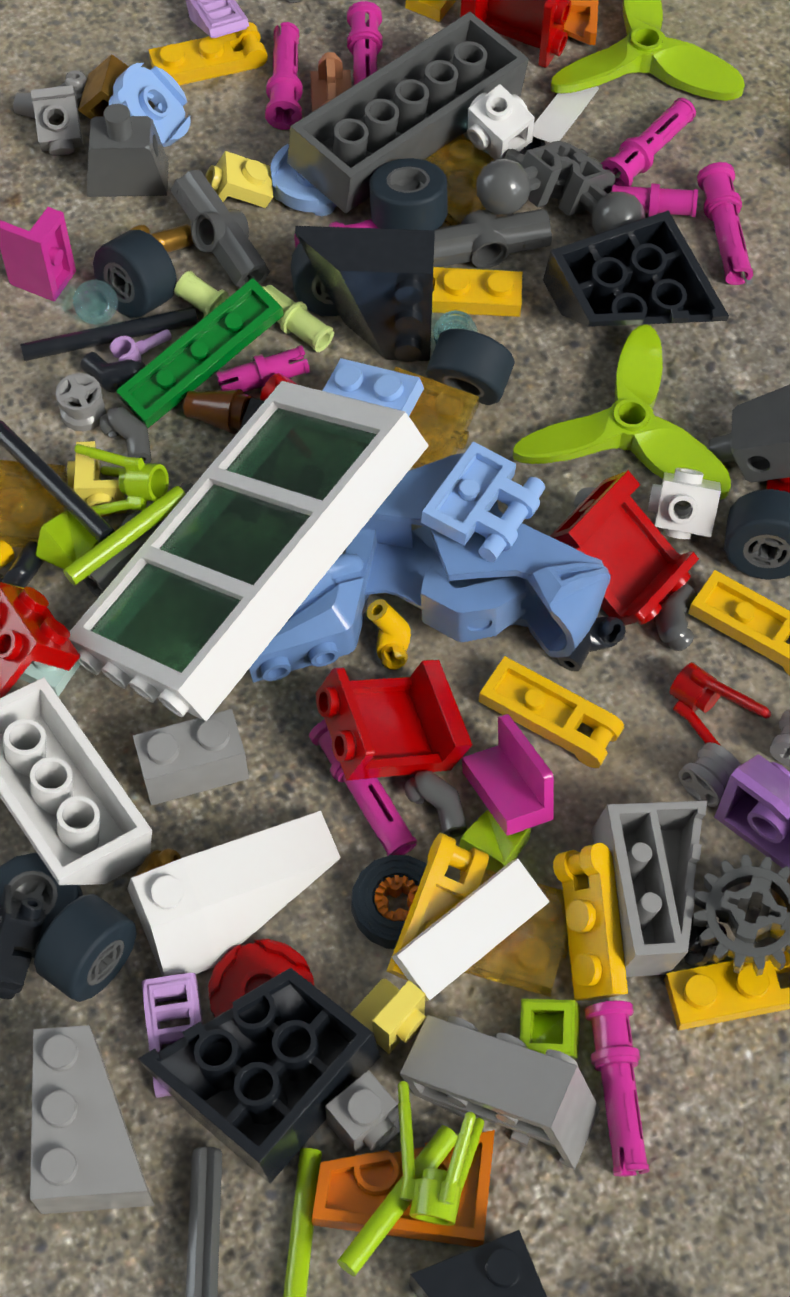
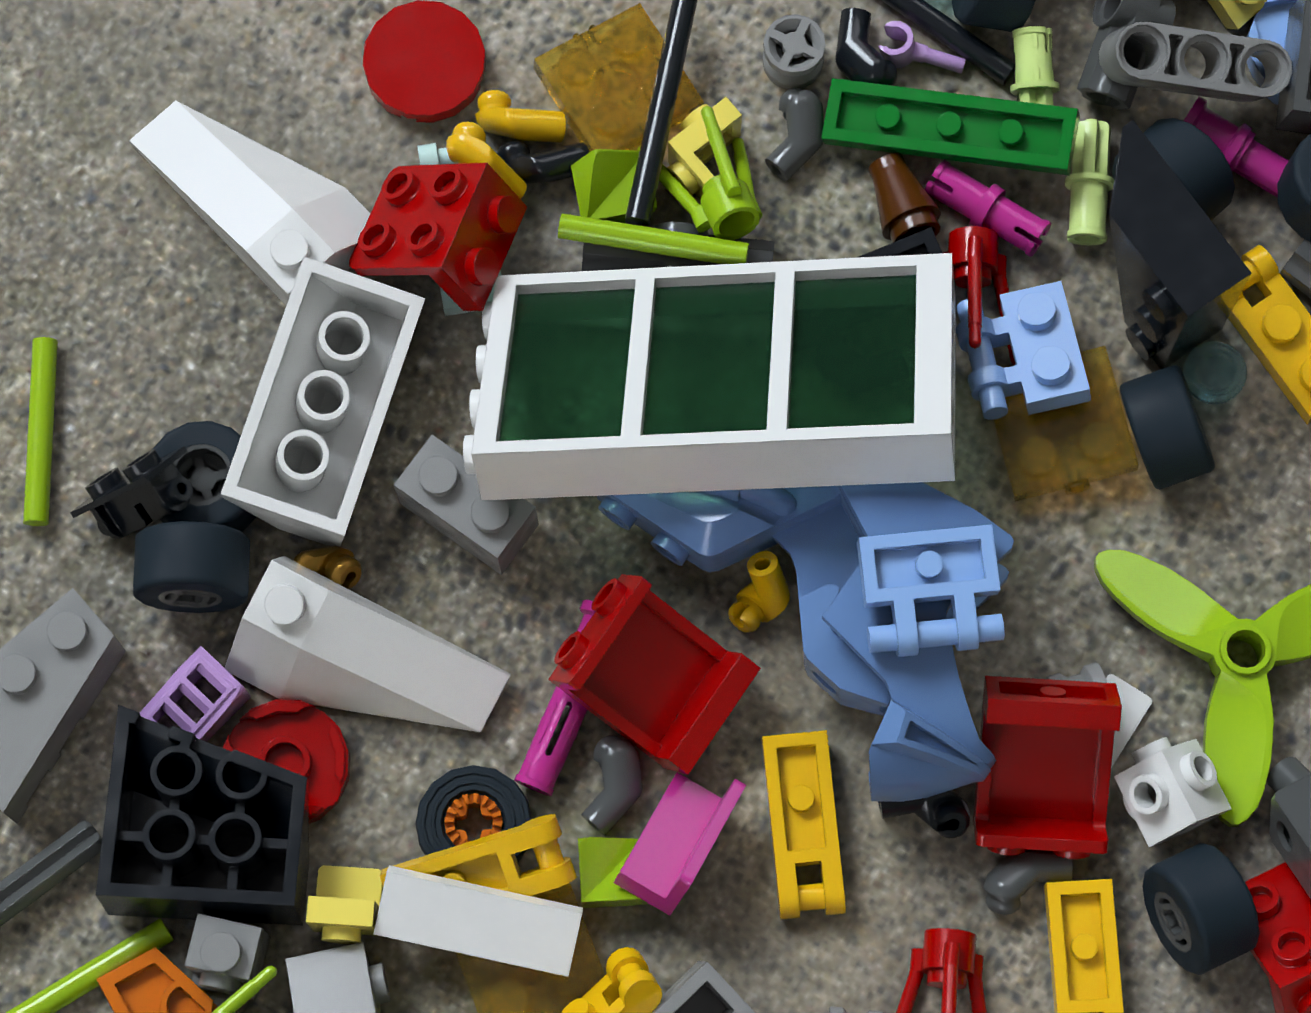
camera: 55 degrees right, 15 degrees up
(276, 209) = (1223, 55): none -> light grey beam

